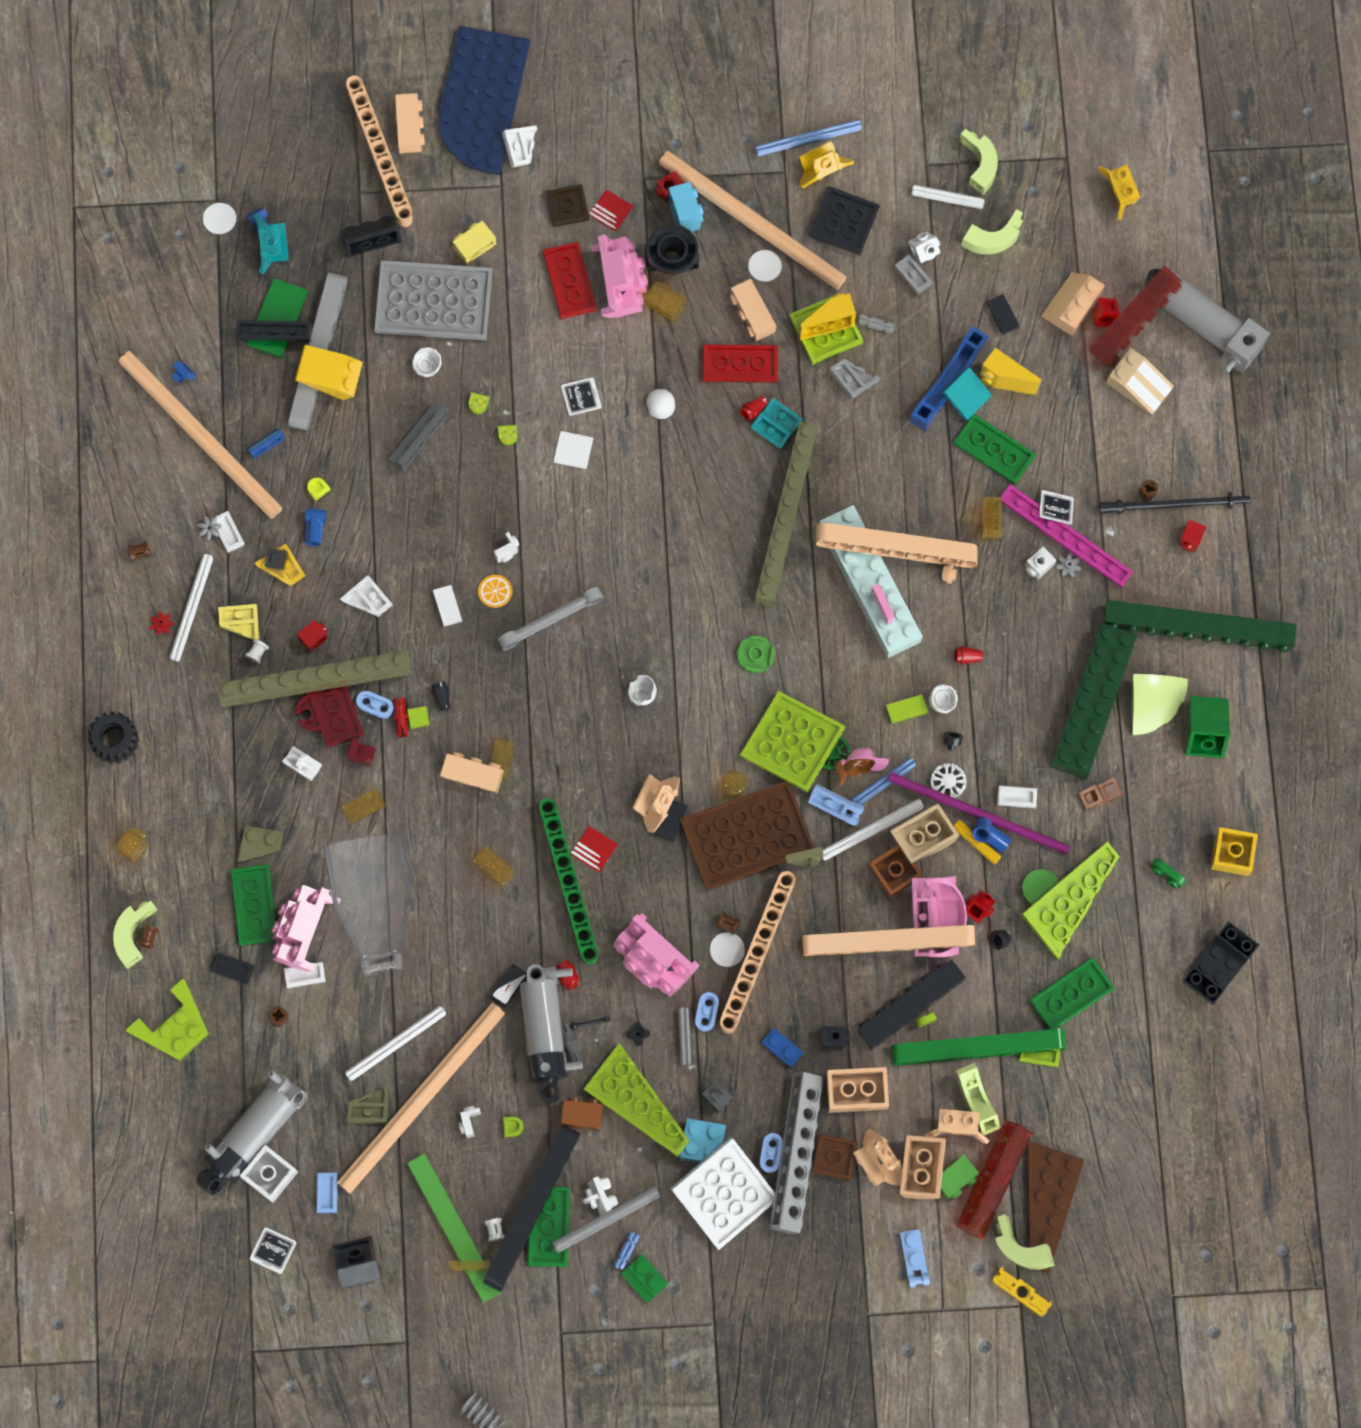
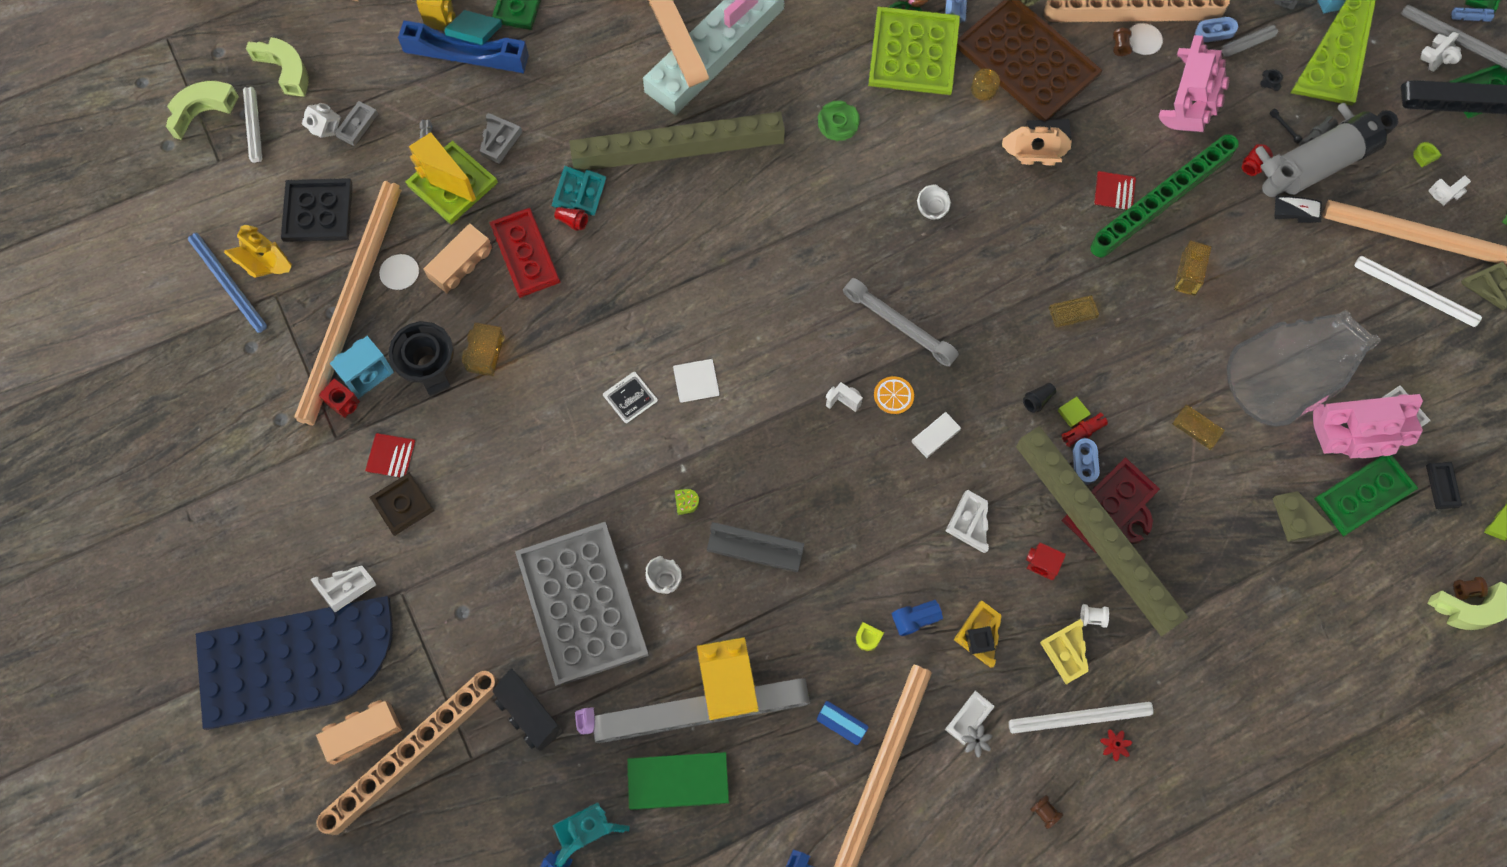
camera: 110 degrees left, 5 degrees down
(107, 723) = (1299, 723): black tyre -> none
(132, 844) = (1392, 648): clear yellow brick -> none
(273, 331) = (701, 772): black plate -> none
(274, 1012) = (1466, 412): reddish brown bush -> none
(302, 763) = (1194, 506): white hips -> none
(347, 271) = (585, 720): none -> lavender tile
(361, 753) = (1146, 452): dark red panel -> none
(472, 772) = (1107, 329): light nougat brick -> none
(474, 242) = (489, 586): light yellow brick -> none
(507, 434) = (709, 453): lime tile -> none
(569, 280) = (495, 464): red tile -> none
(582, 1114) = (1380, 92): dark orange brick -> none
(622, 272) = (469, 399): bright pink piece -> none
(660, 403) = (604, 310): white hair -> none
(1003, 314) = (370, 31): black tile -> none

